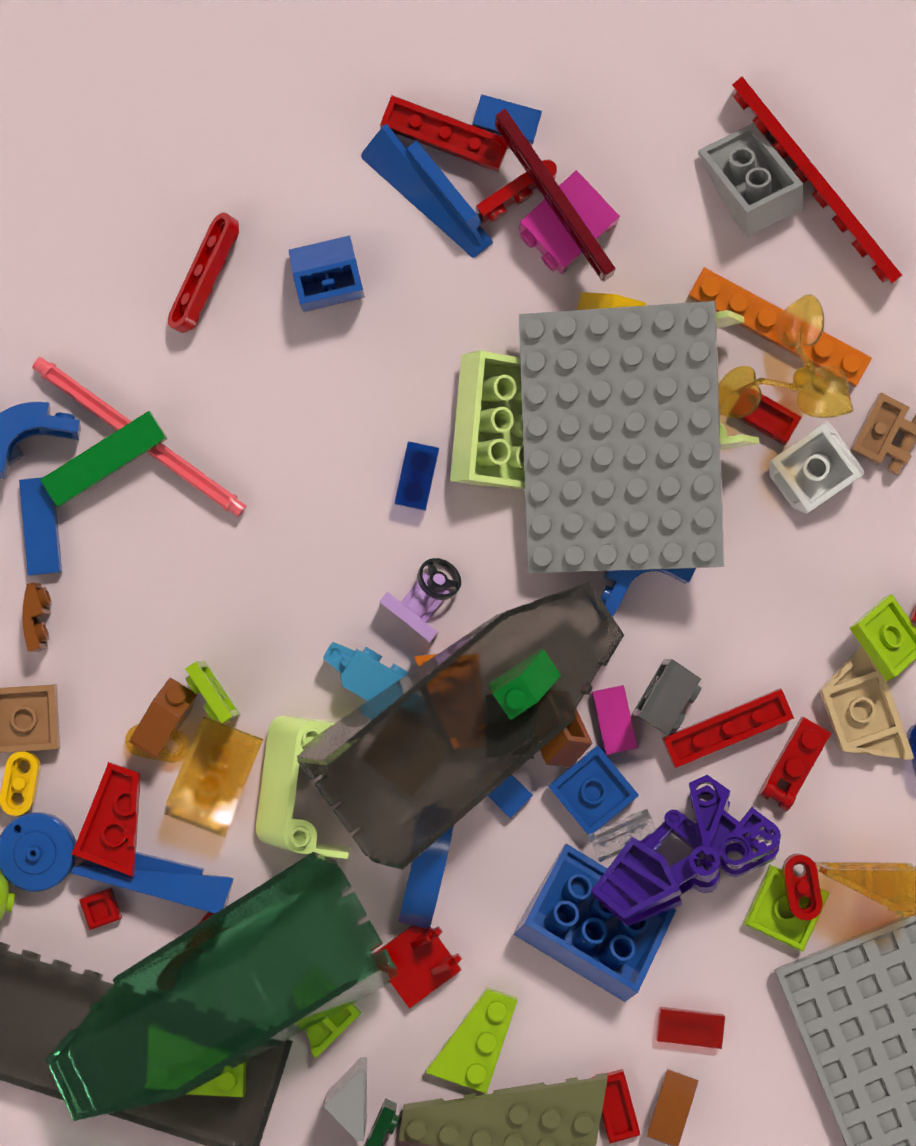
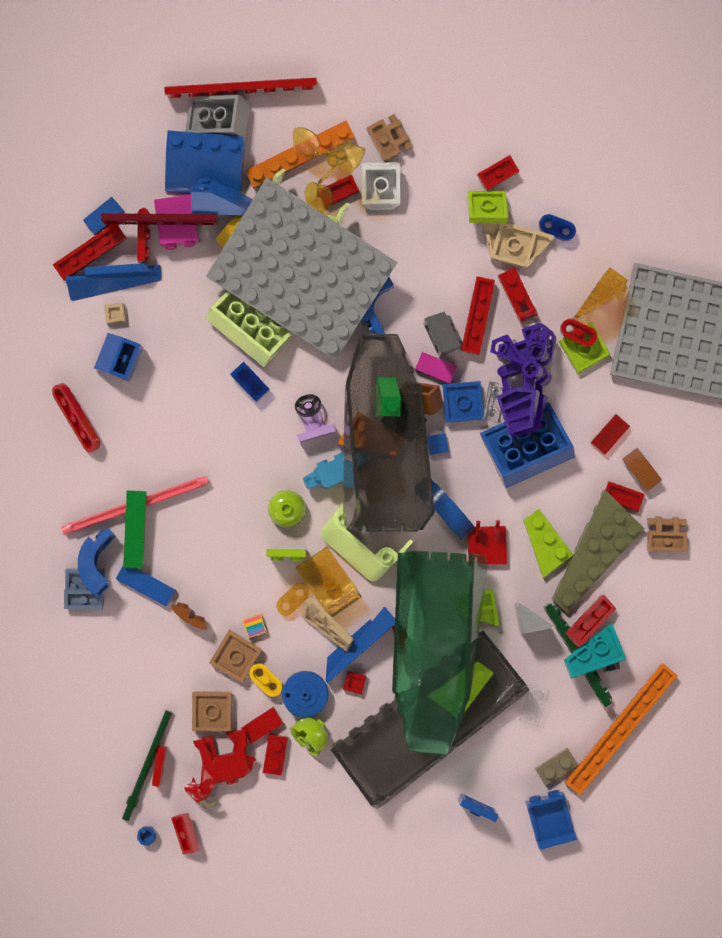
camera: 50 degrees left, 0 degrees up
(84, 716) = (254, 626): none -> tile
(112, 821) = (316, 647): red wing -> none
(151, 815) = (326, 624): none -> tan wing
(163, 718) = (282, 585): dark orange slope -> none
(276, 648) = (287, 508): none -> lime cylinder
(384, 227) = (115, 313): none -> tan tile
(638, 255) = (215, 198): none -> blue slope
(674, 205) = (203, 156): none -> blue slope

